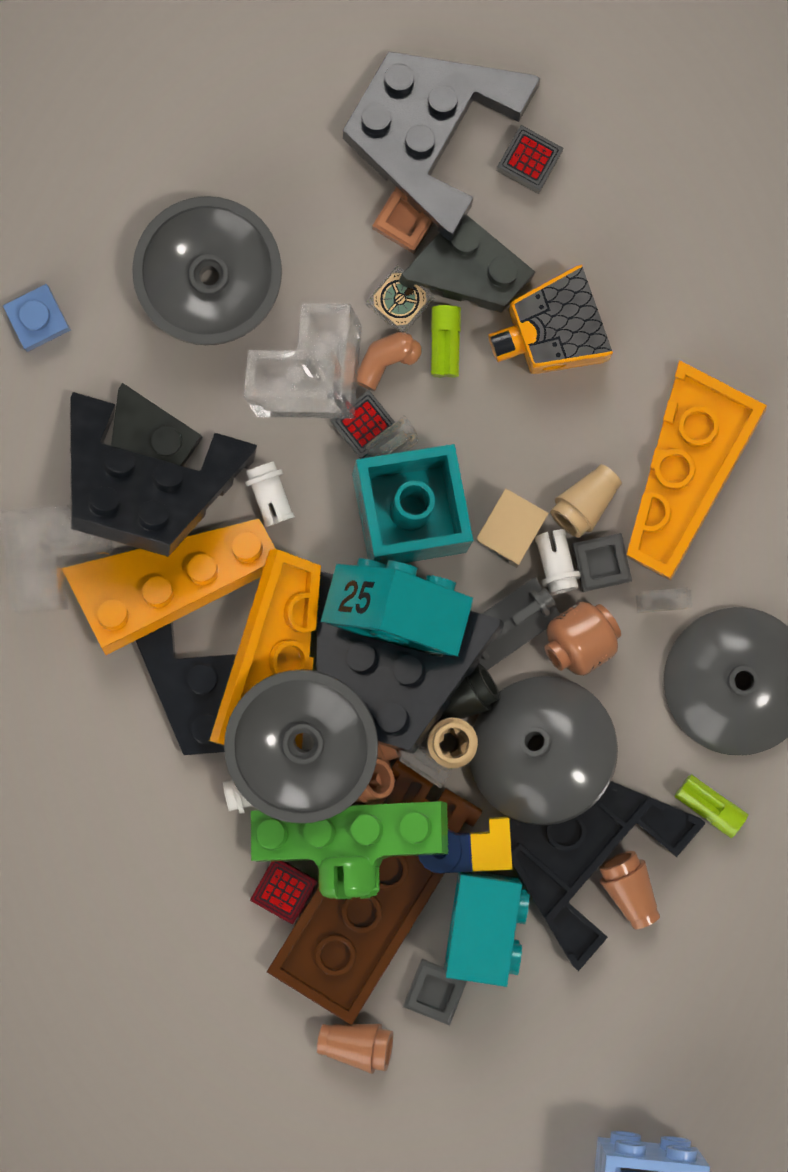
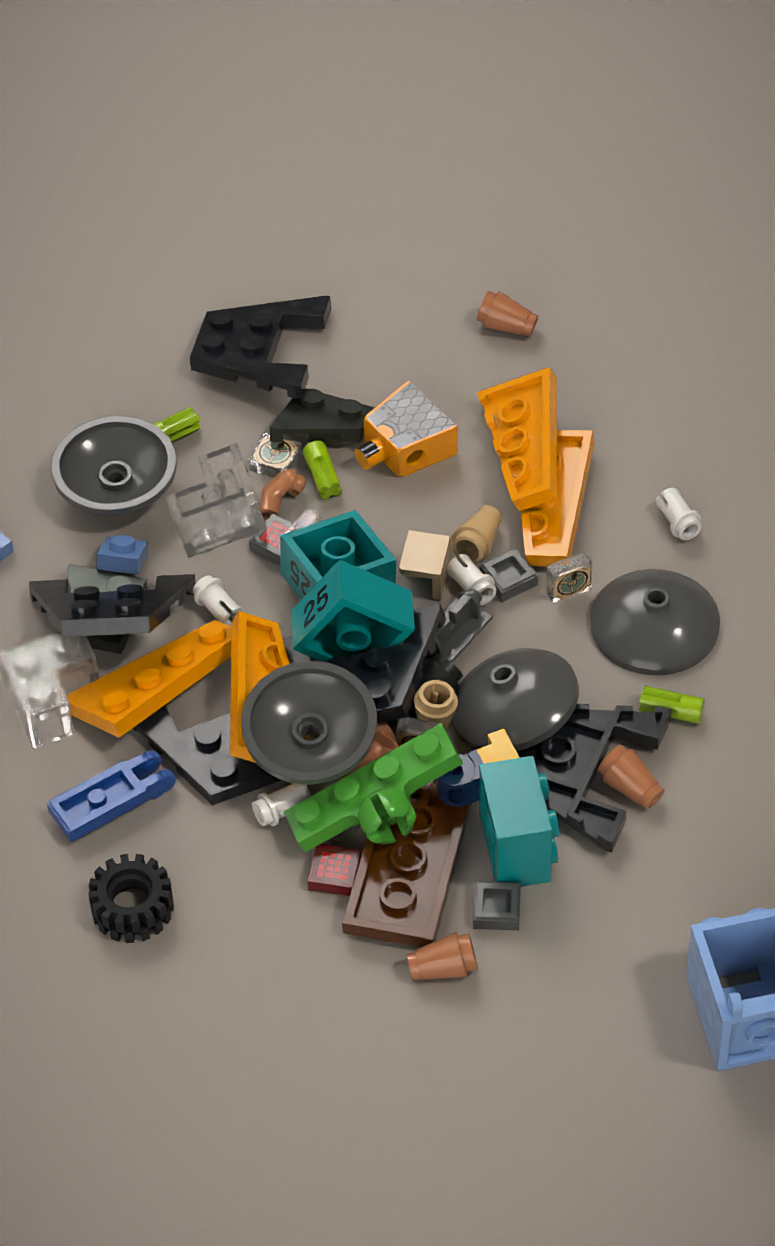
camera: 20 degrees left, 35 degrees down
(32, 863) = (135, 919): none -> black tyre
(74, 717) = (110, 794): none -> blue hinge
(184, 391) = (122, 554): none -> medium blue plate
(296, 217) = (179, 424): none -> lime piece
(402, 222) = (259, 407): nougat tile -> none
(529, 159) = (342, 347): tile -> none
(582, 638) = (514, 618): nougat head -> none
(691, 372) = (525, 435): none -> light orange wing
(735, 182) = (506, 315): none -> nougat cone

